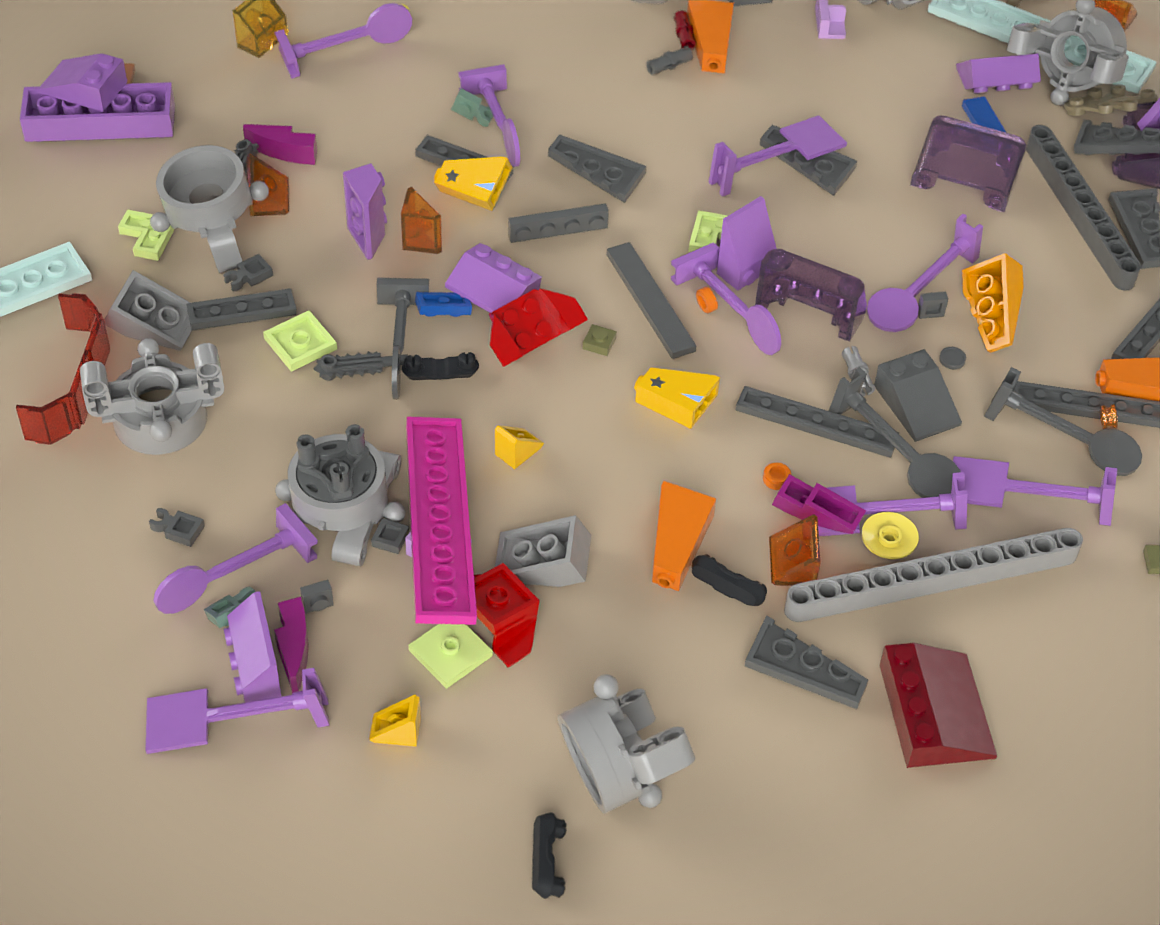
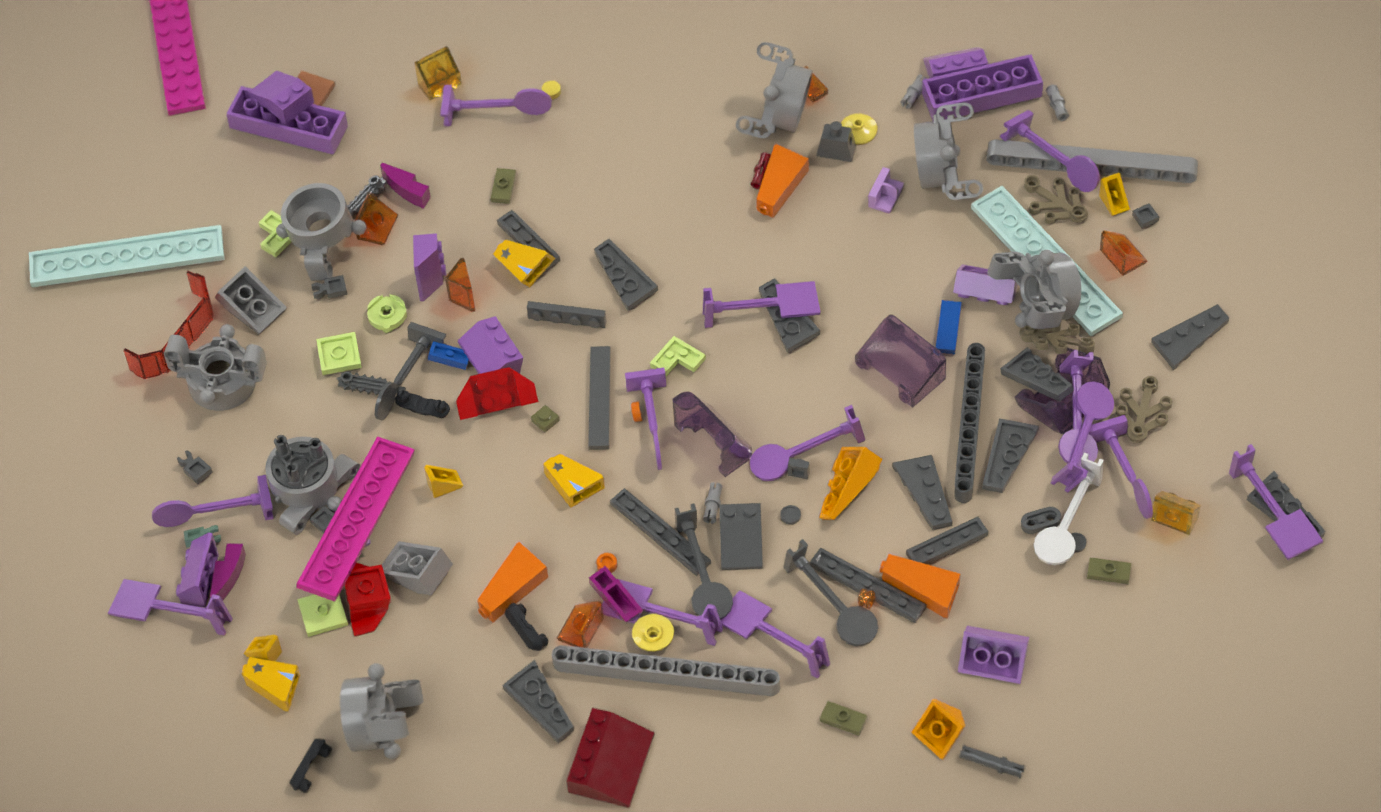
camera: 30 degrees right, 5 degrees up
(241, 309) = (310, 316): dark grey plate -> none
(316, 596) = (256, 547): dark grey plate -> none
(341, 291) = (386, 322): none -> yellowish green plate
(399, 117) = (503, 185): none -> olive plate
(432, 760) = (272, 680): none -> yellow slope
(469, 106) = (557, 194): sand green plate -> none
(485, 82) = (577, 174): medium lavender piece -> none
(669, 60) = (734, 195): dark grey pin -> none
(744, 243) = (682, 373): medium lavender slope -> none
(1082, 286) = (925, 488): none -> dark grey wing

